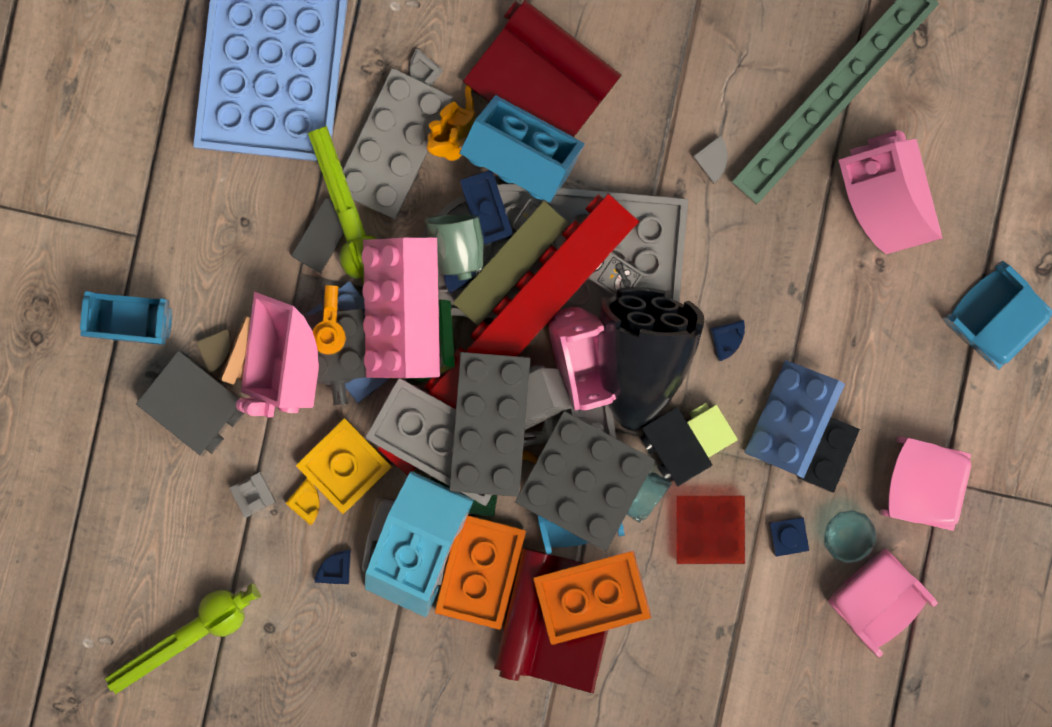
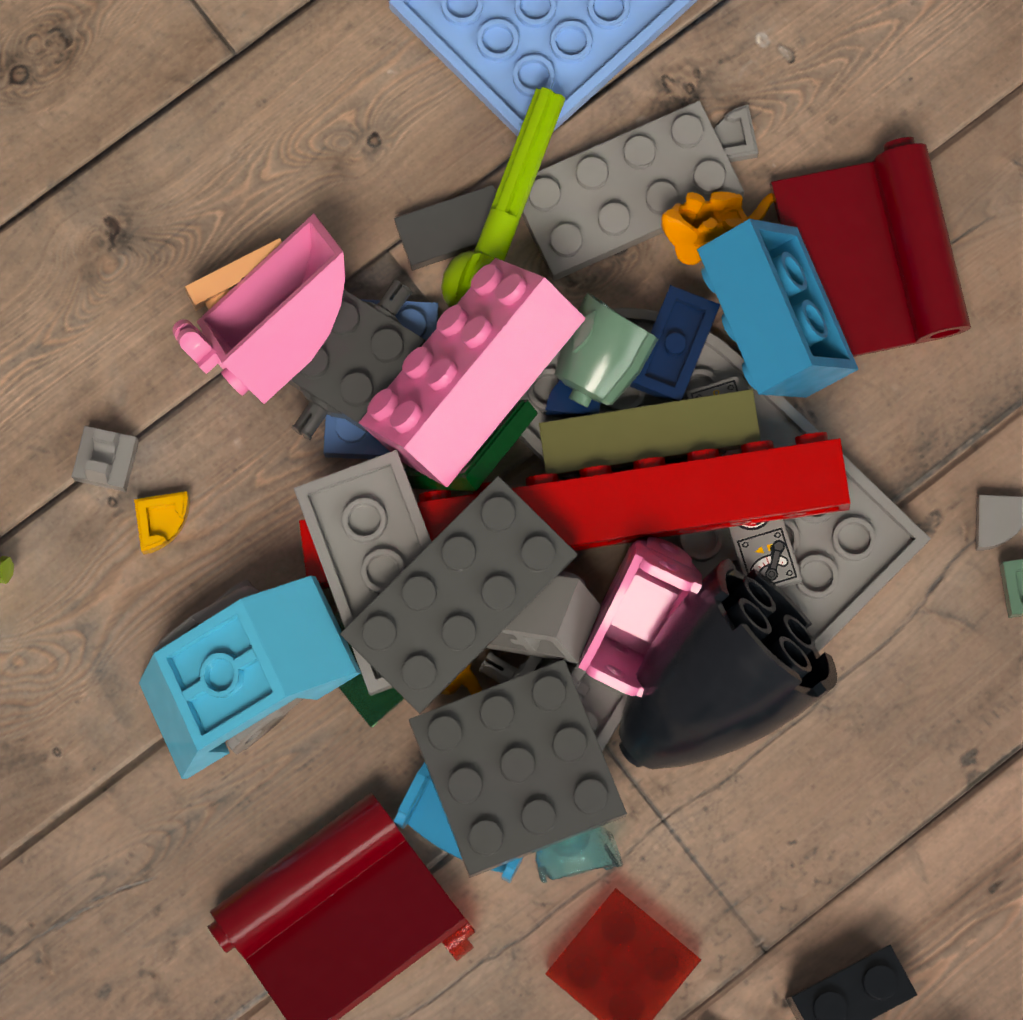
camera: 40 degrees right, 10 degrees down
(125, 318) = (136, 125): dark azure piece -> none
(191, 404) = (125, 289): dark grey brick -> none
(215, 349) = (210, 252): dark tan tile -> none
(329, 334) = (358, 332): light orange plate -> none
(335, 569) = (125, 629): dark blue tile -> none
(344, 466) = (242, 513): yellow plate -> none
(480, 572) = (295, 779): orange plate -> none
(592, 597) = (404, 920): orange plate -> none
(675, 447) = (665, 826): black brick -> none
(711, 429) = (726, 841): yellowish green brick -> none
(728, 338) = (840, 751): dark blue tile -> none
(794, 418) = (844, 915): medium blue plate -> none

